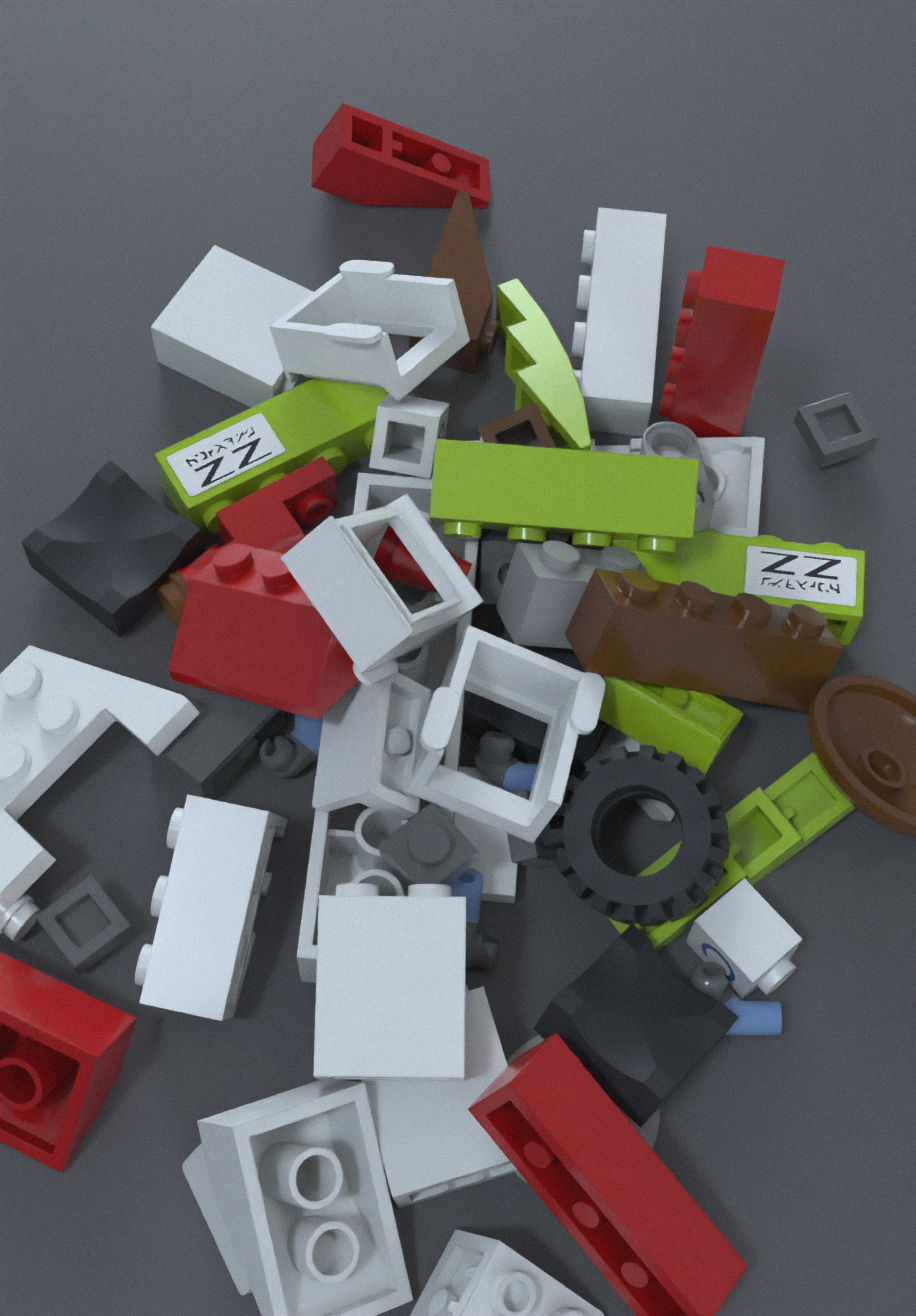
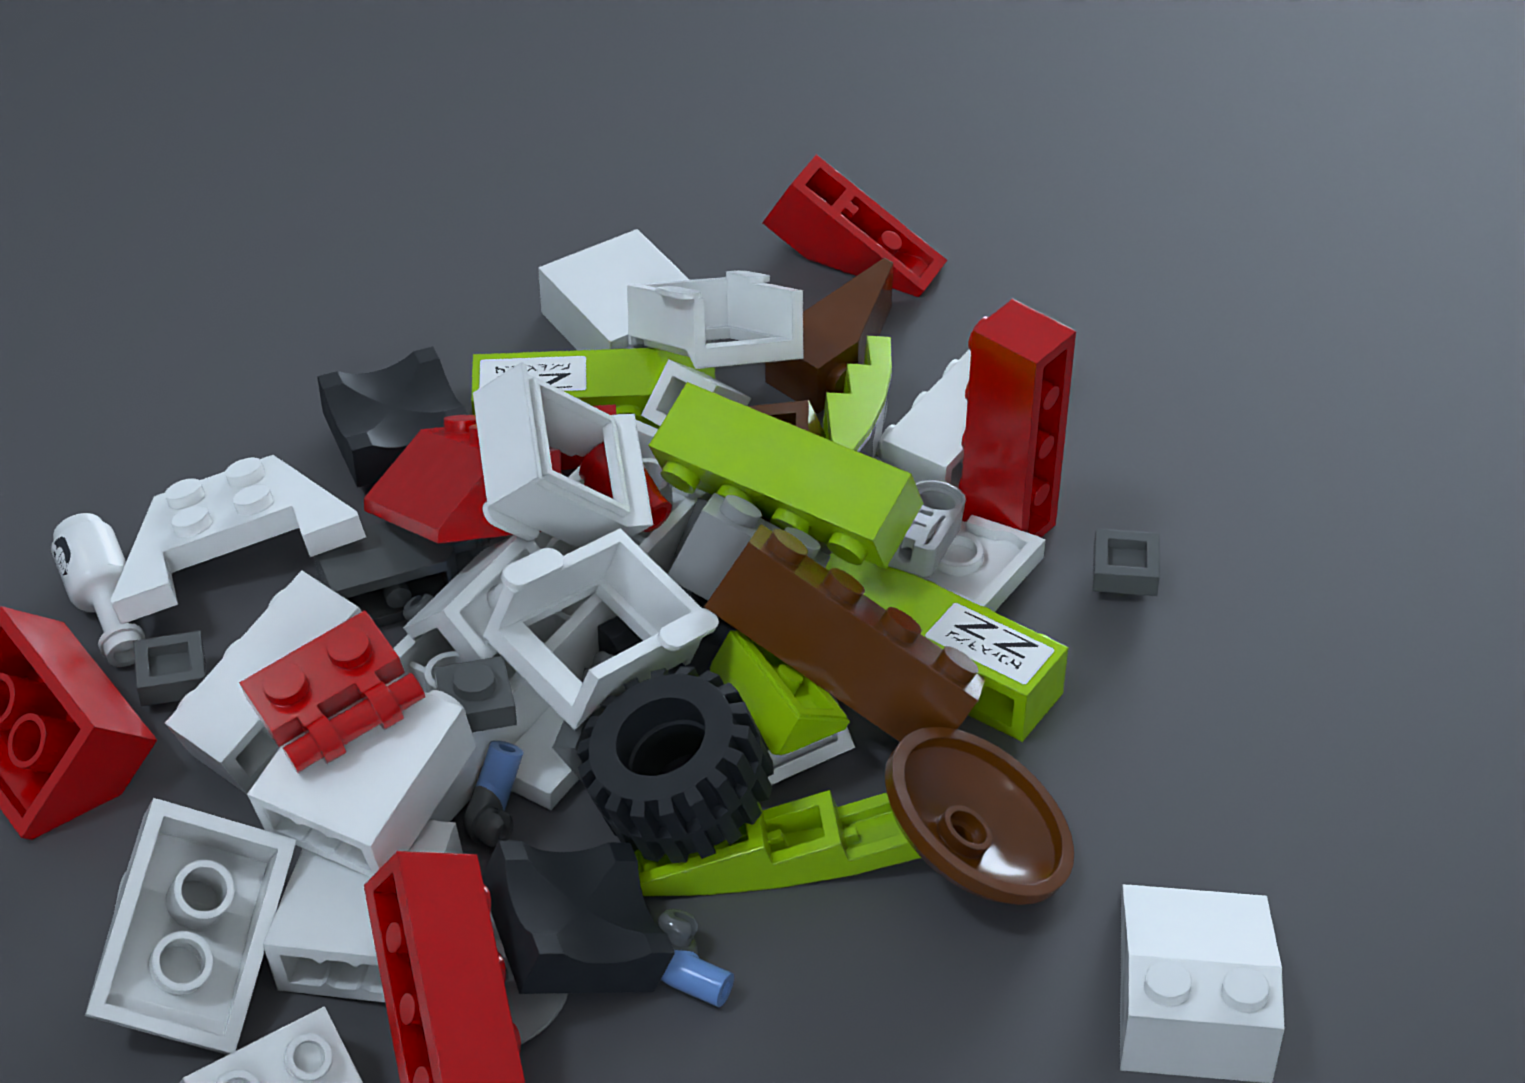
camera: 30 degrees right, 20 degrees down
(321, 929) = (325, 678): none -> red plate
(746, 940) = (732, 908): white brick -> none

